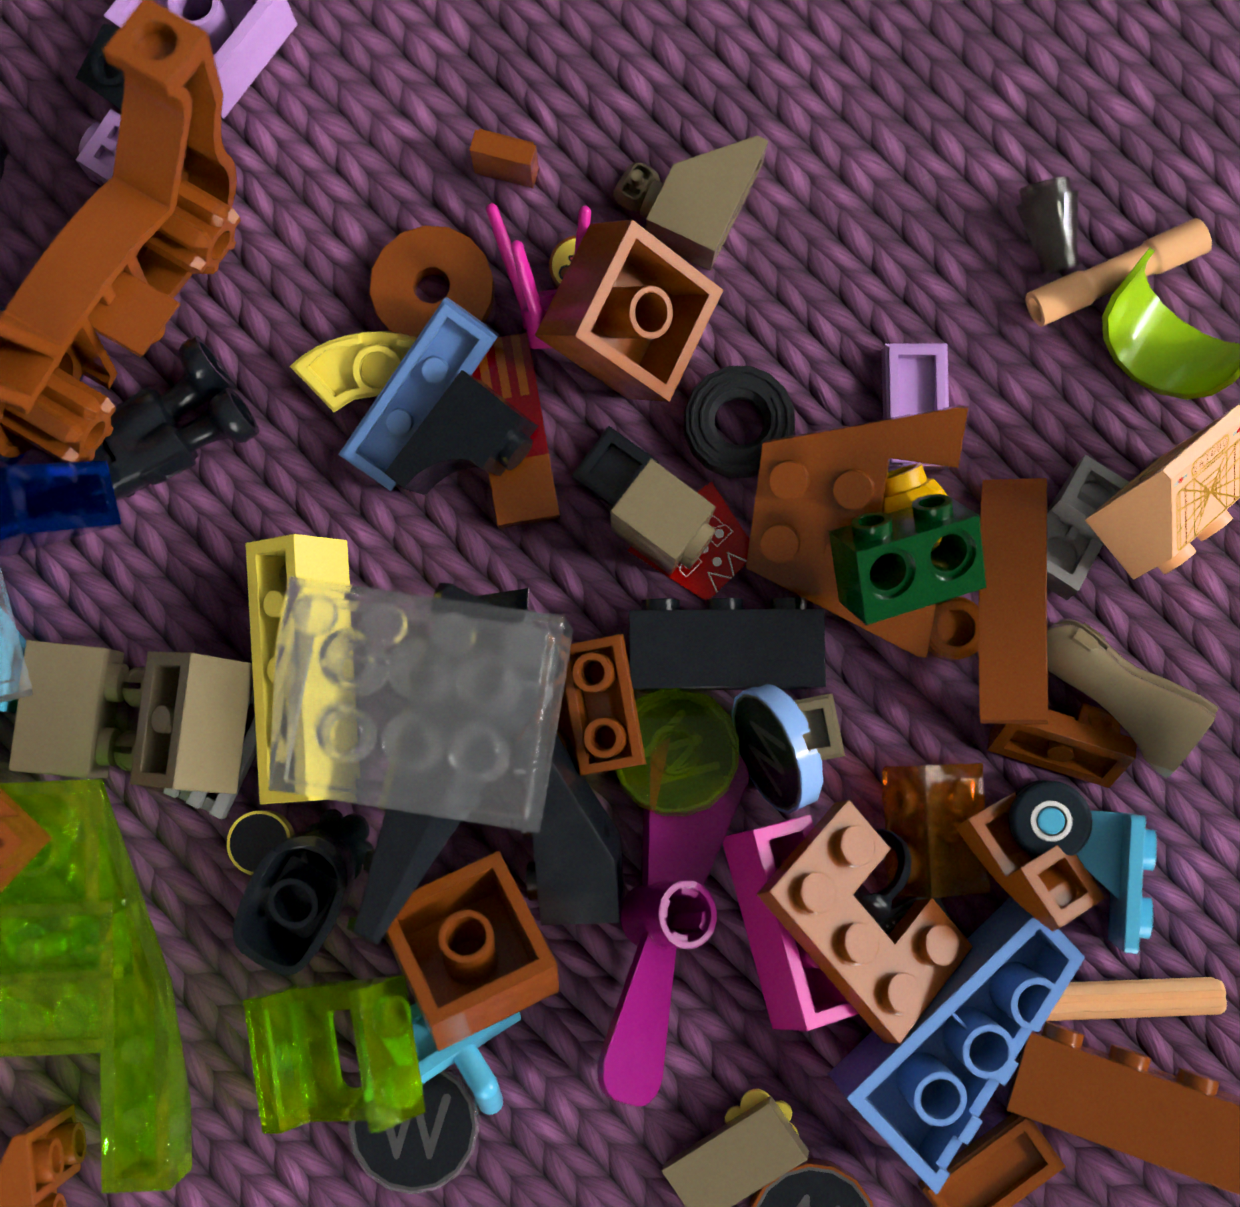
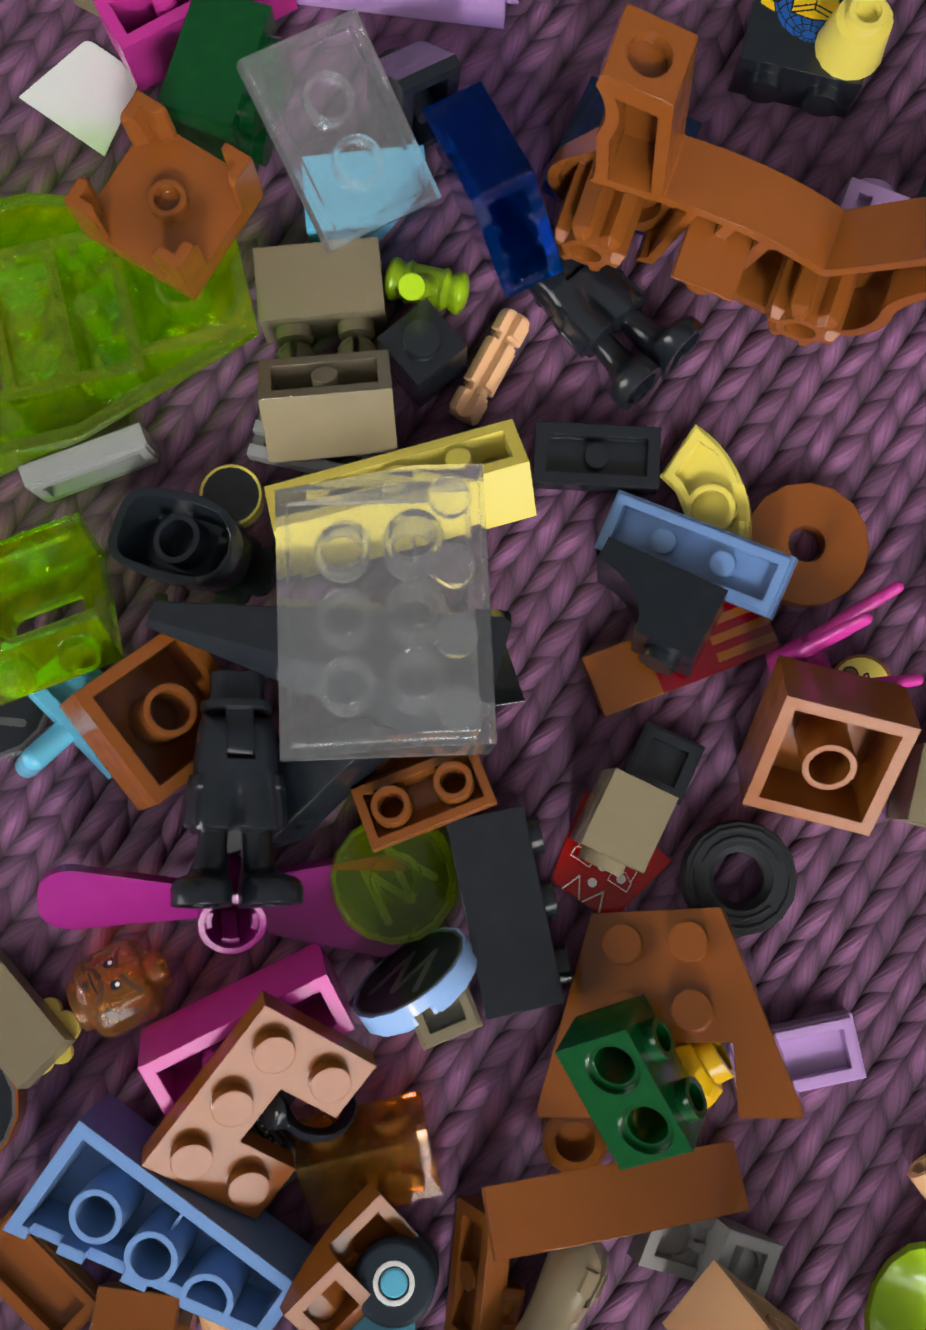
camera: 80 degrees right, 0 degrees up
(86, 603) = (417, 281): none -> lime piece
(156, 617) = (424, 353): none -> black brick
(184, 556) = (489, 366): none -> light nougat axle
(194, 981) = (90, 463): none -> light grey tile
(301, 469) = (596, 457): none -> black plate
(558, 883) = (239, 790): none -> black piece
(728, 1043) = (118, 988): none -> clear orange head

